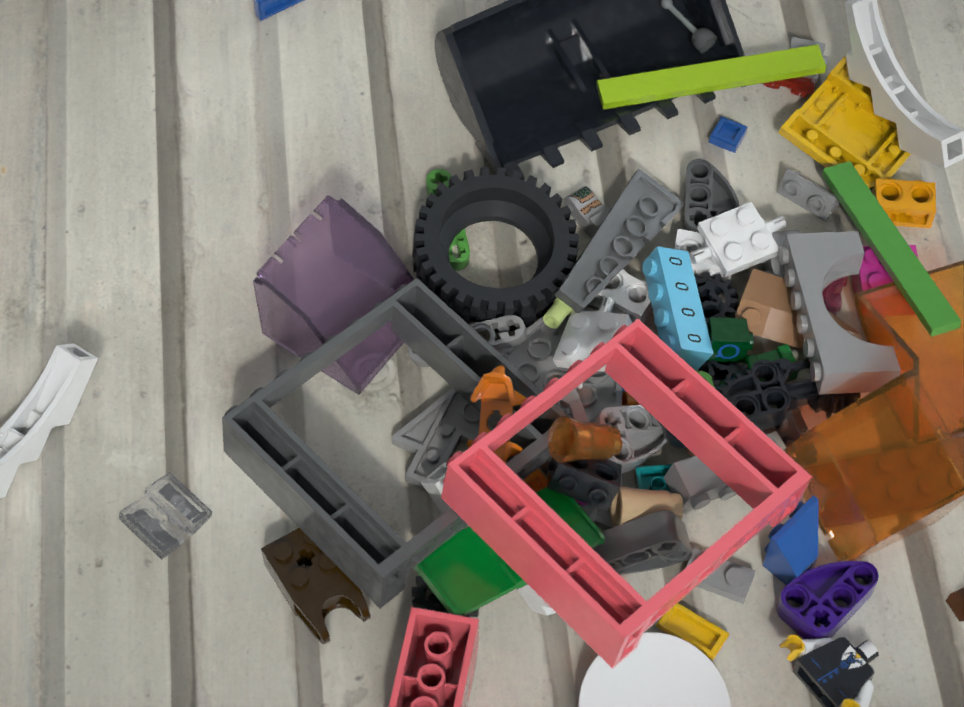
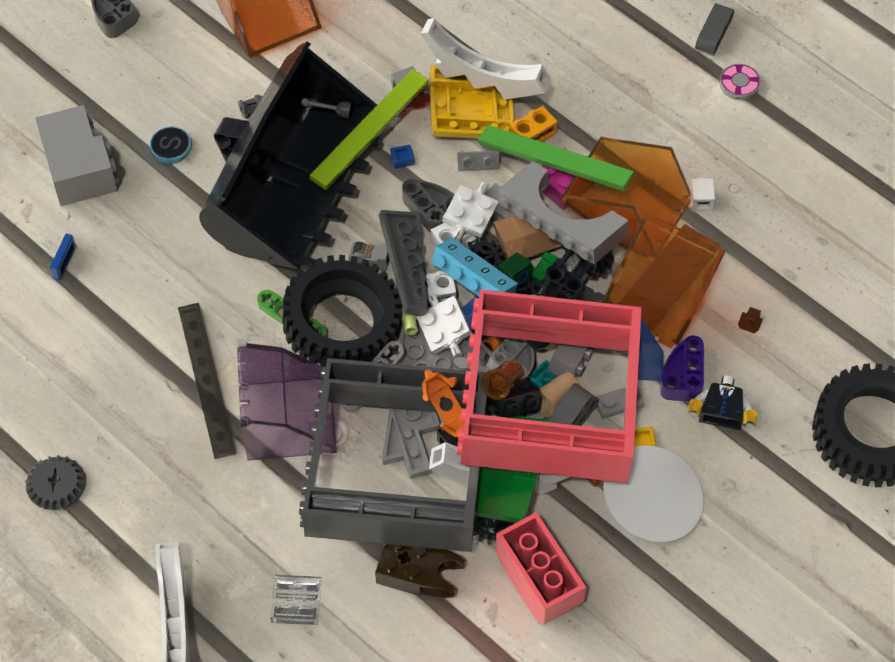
camera: 40 degrees left, 0 degrees up
(58, 230) = (65, 492): none -> dark grey gear
(322, 182) = (207, 381): none -> clear smoke tile

